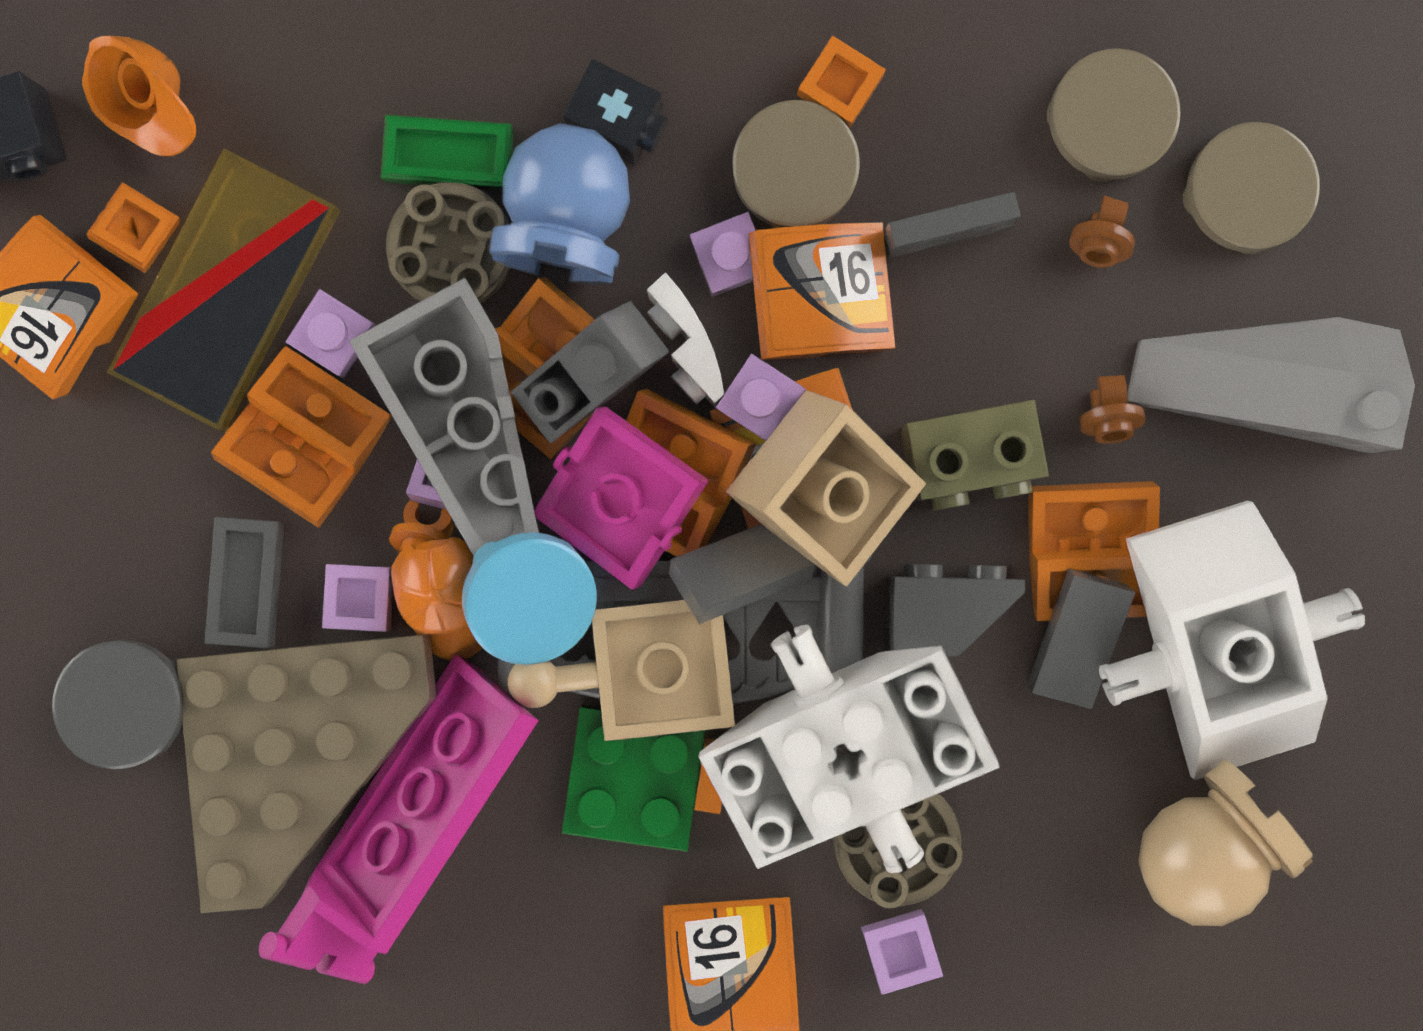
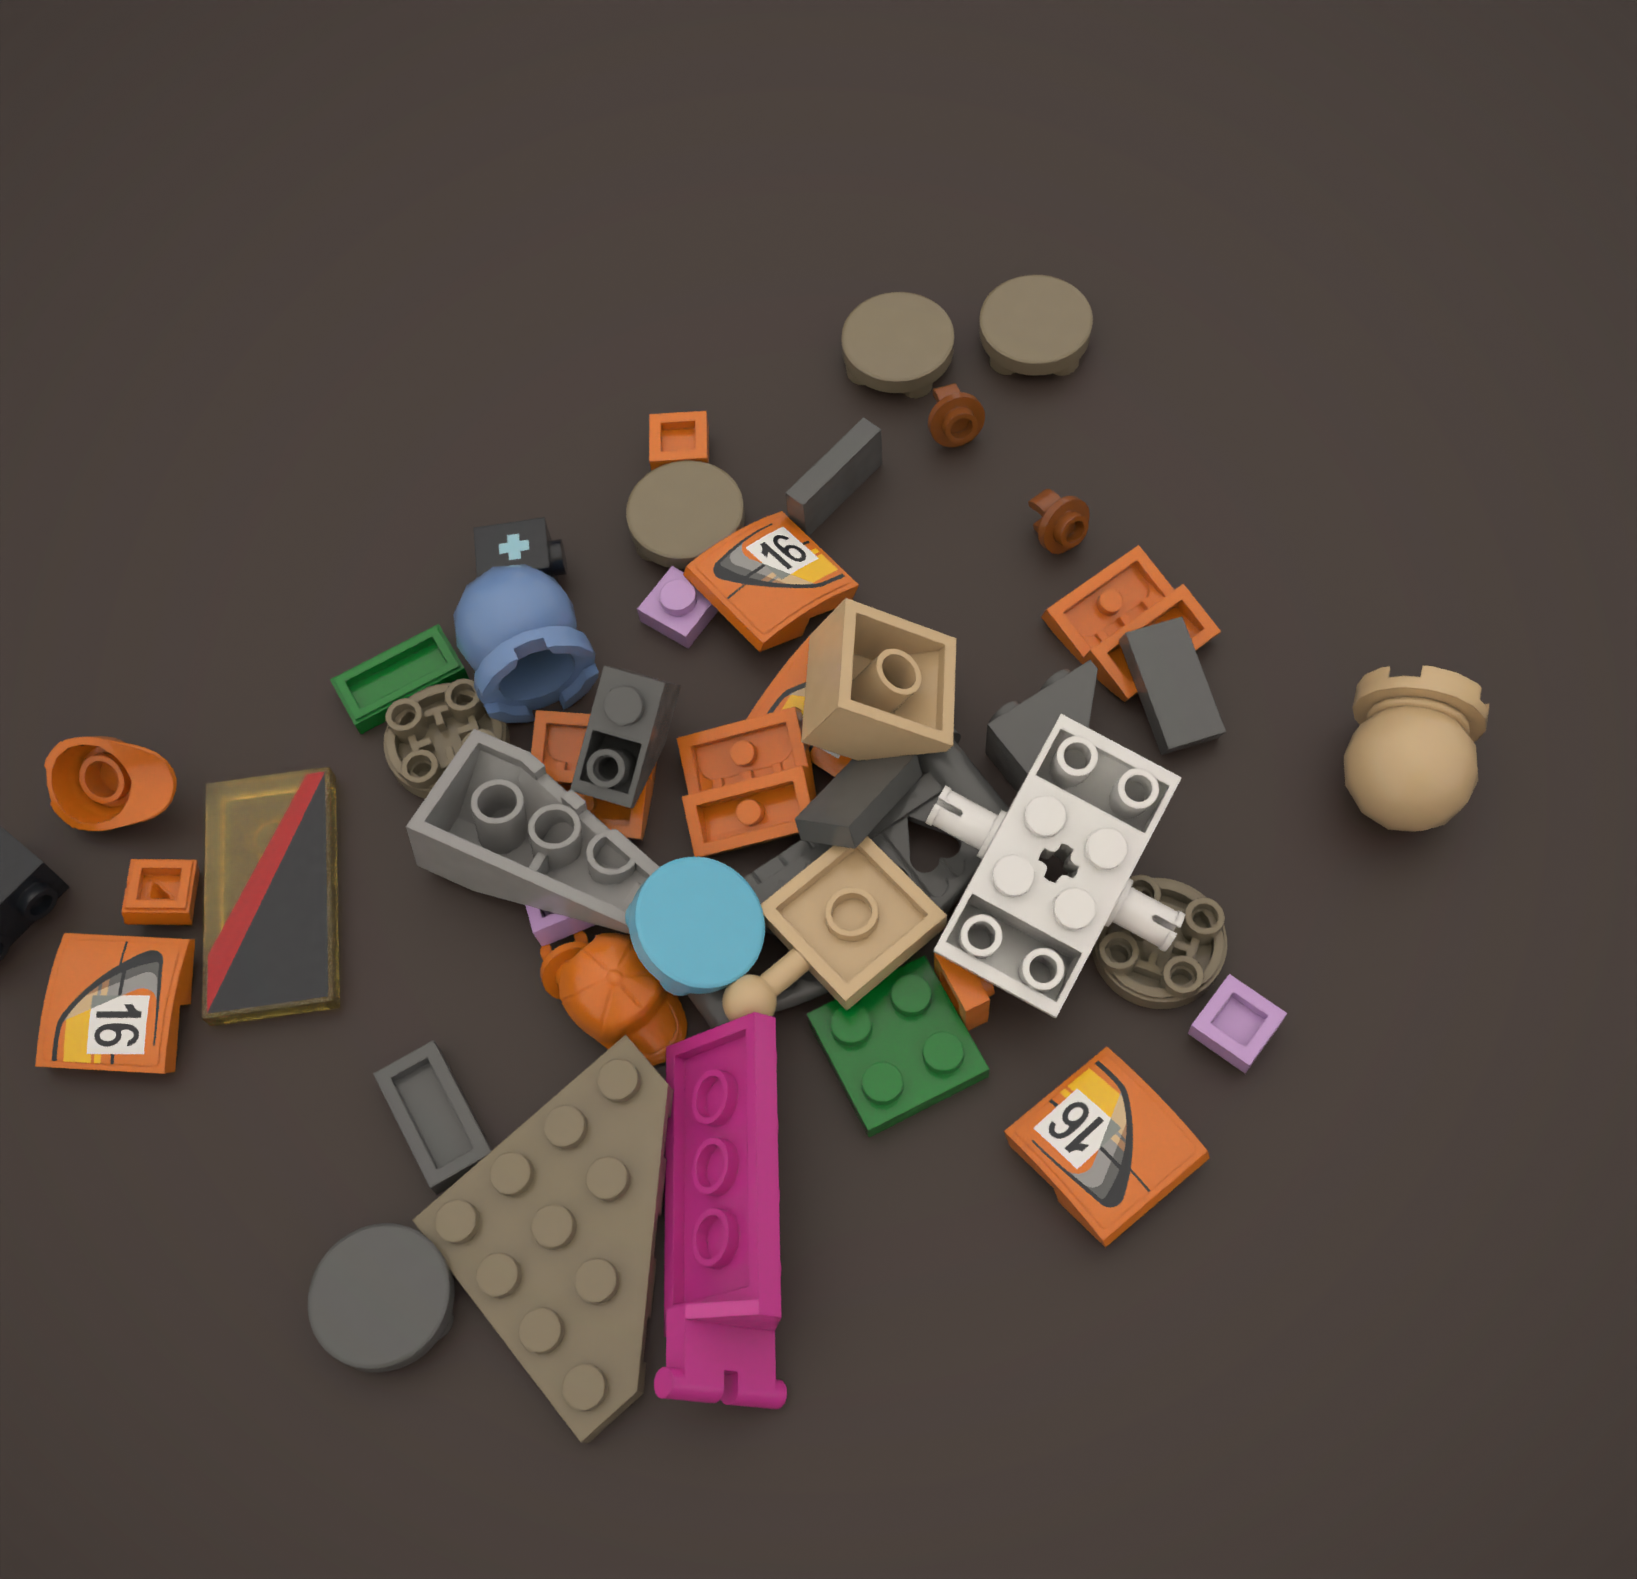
camera: 30 degrees left, 25 degrees down
(301, 436) = (411, 963): orange slope -> none
(326, 331) = (384, 869): lavender plate -> none
(357, 598) = (546, 1054): lavender plate -> none
(619, 497) = (720, 805): dark pink plate -> none
(696, 360) = (710, 686): white slope -> none
(760, 397) = (777, 673): lavender plate -> none
(974, 452) = (984, 607): olive brick -> none
(1229, 638) = (1285, 603): white slope -> none
(1300, 380) = (1171, 426): light grey wedge -> none

